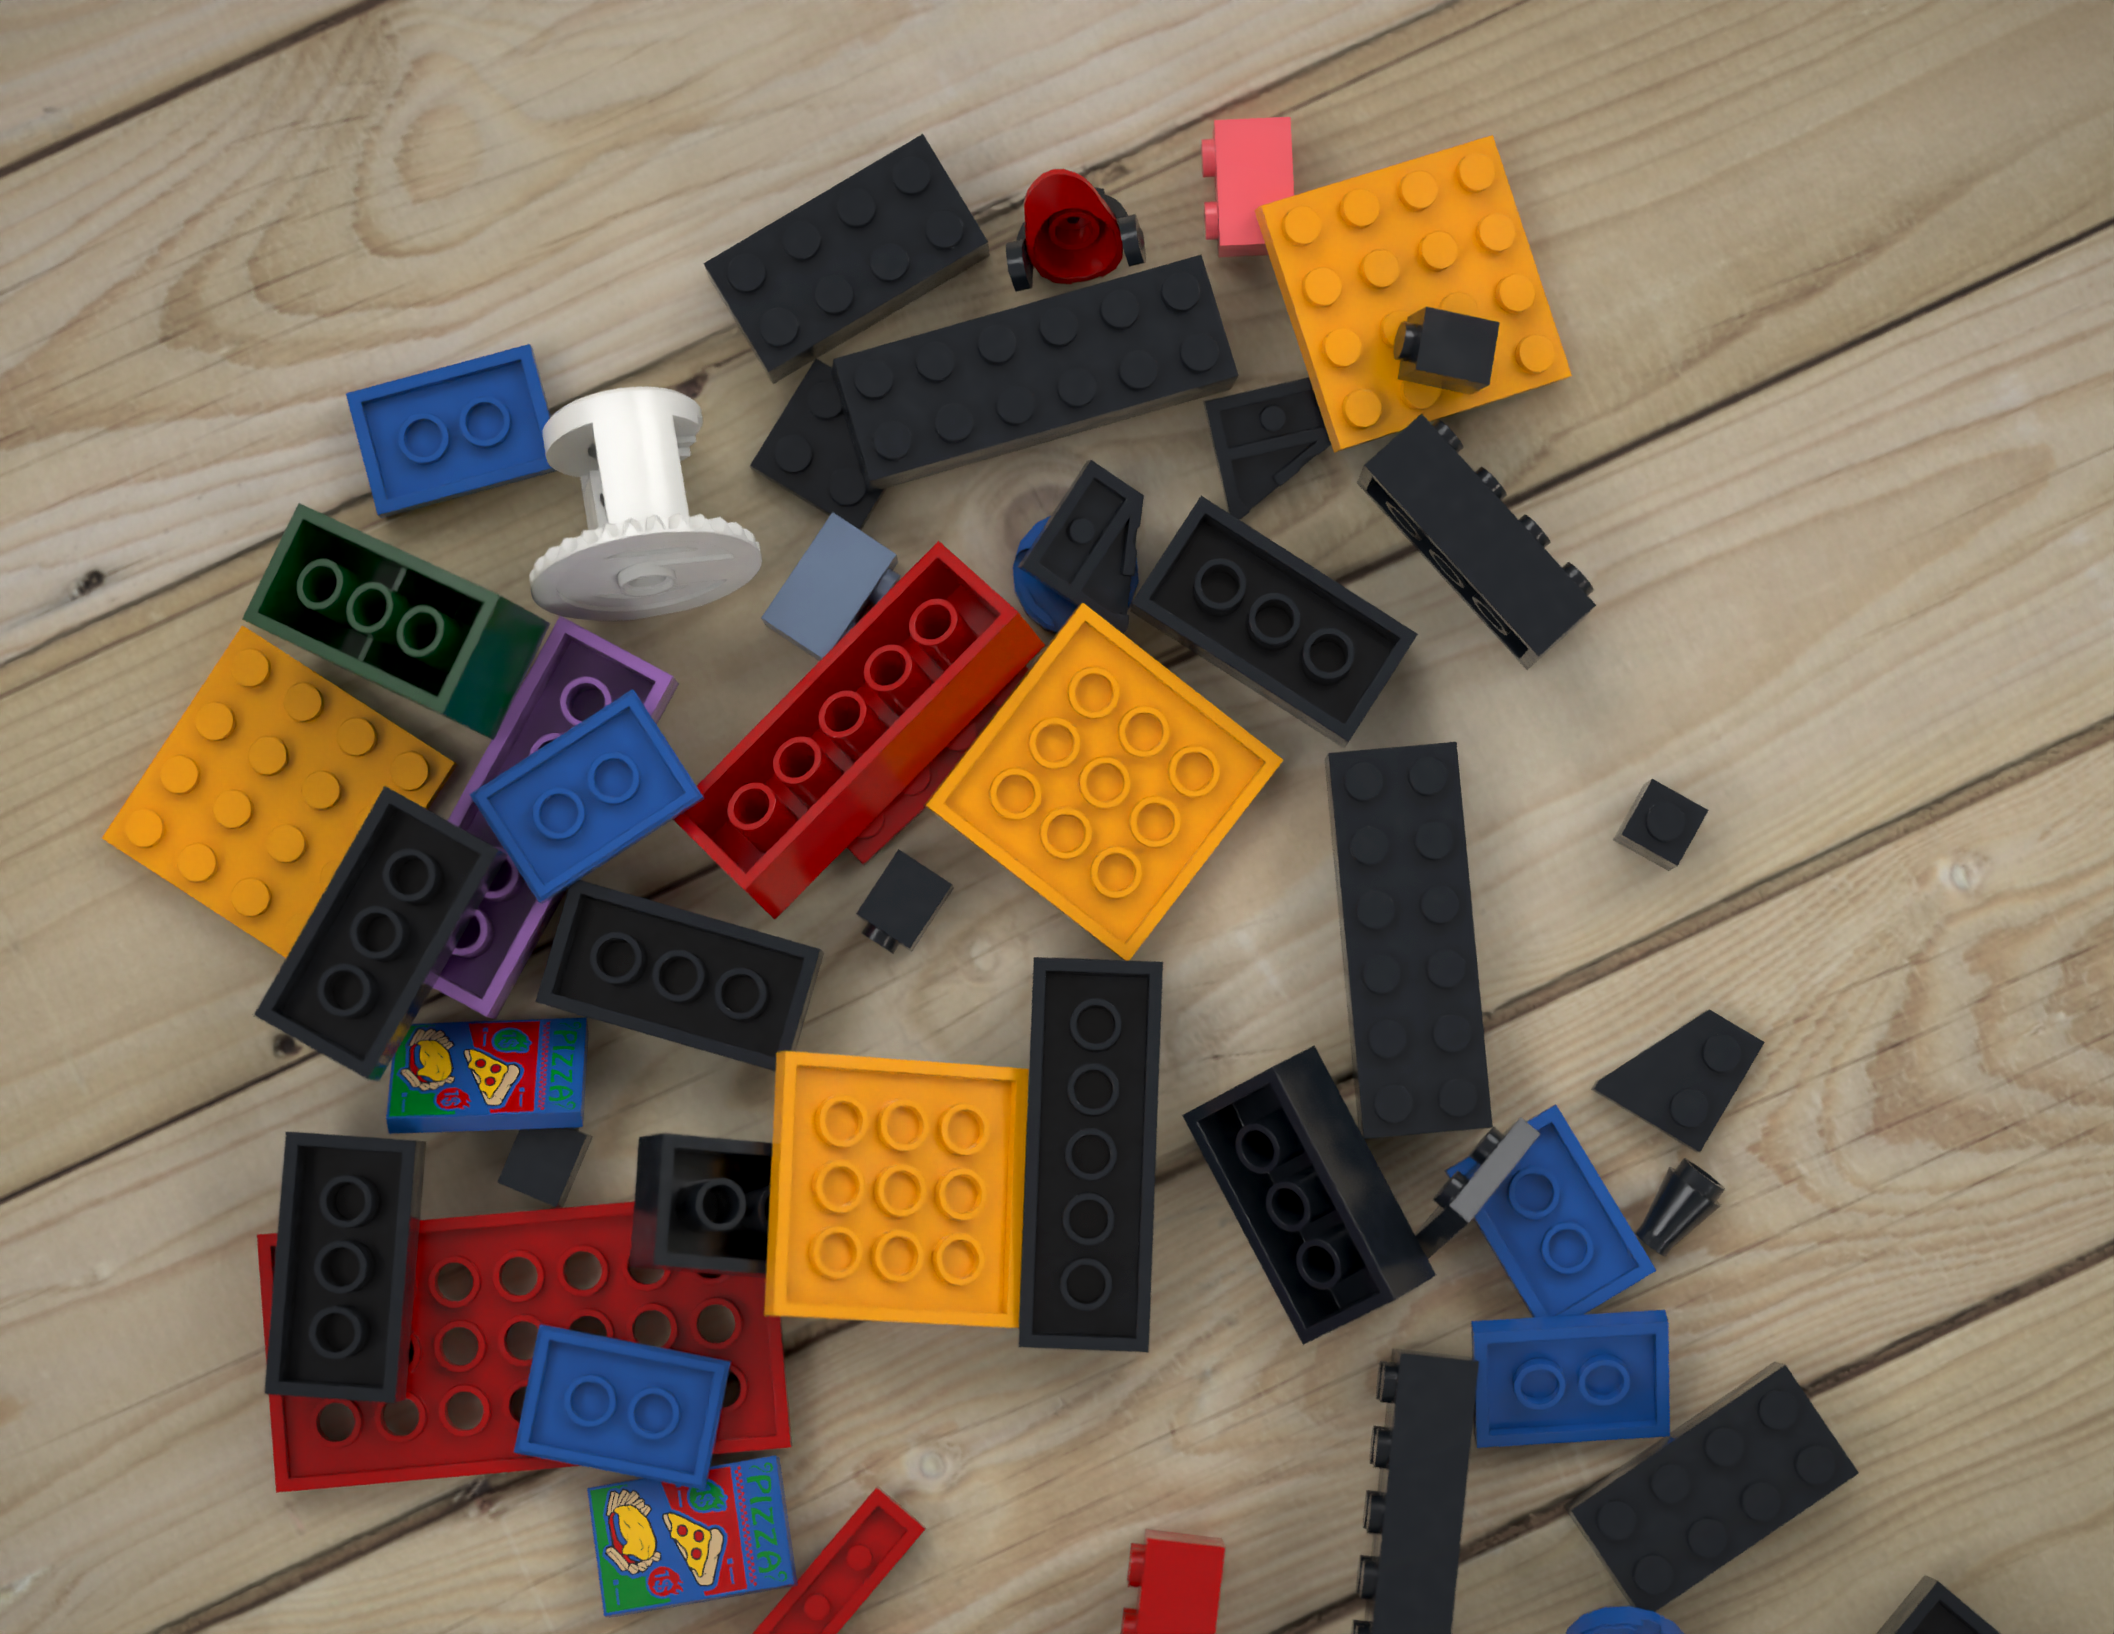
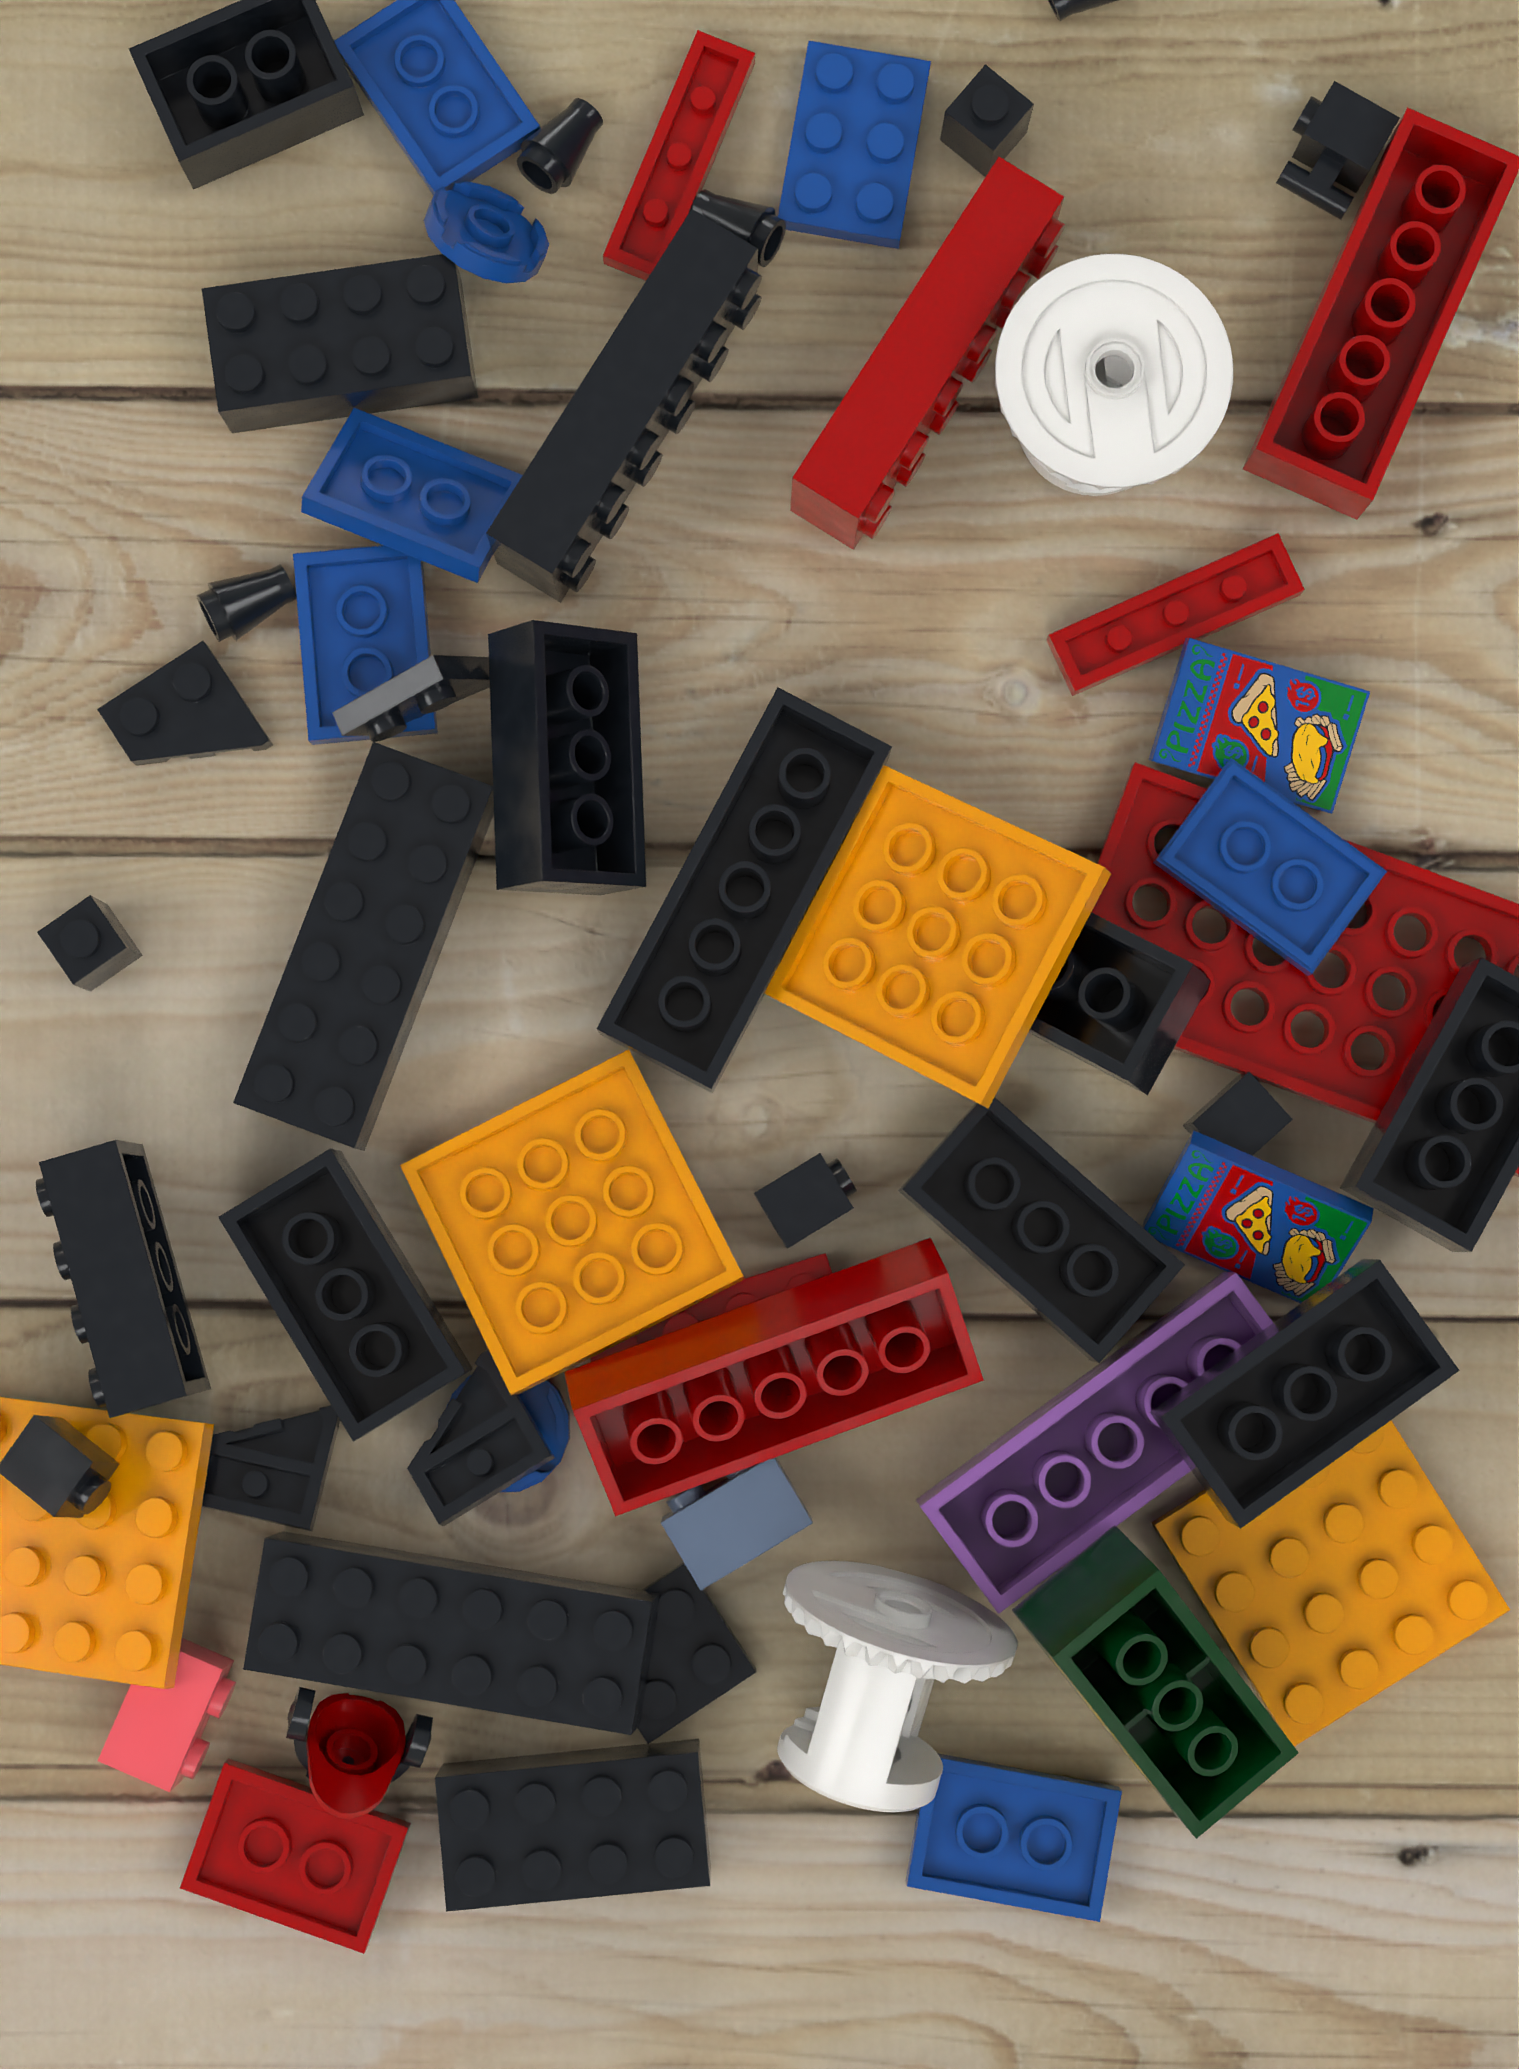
camera: 160 degrees left, 0 degrees up
(586, 796) = (1051, 1431): blue tile -> none
(1080, 113) = (290, 1860): none -> red plate

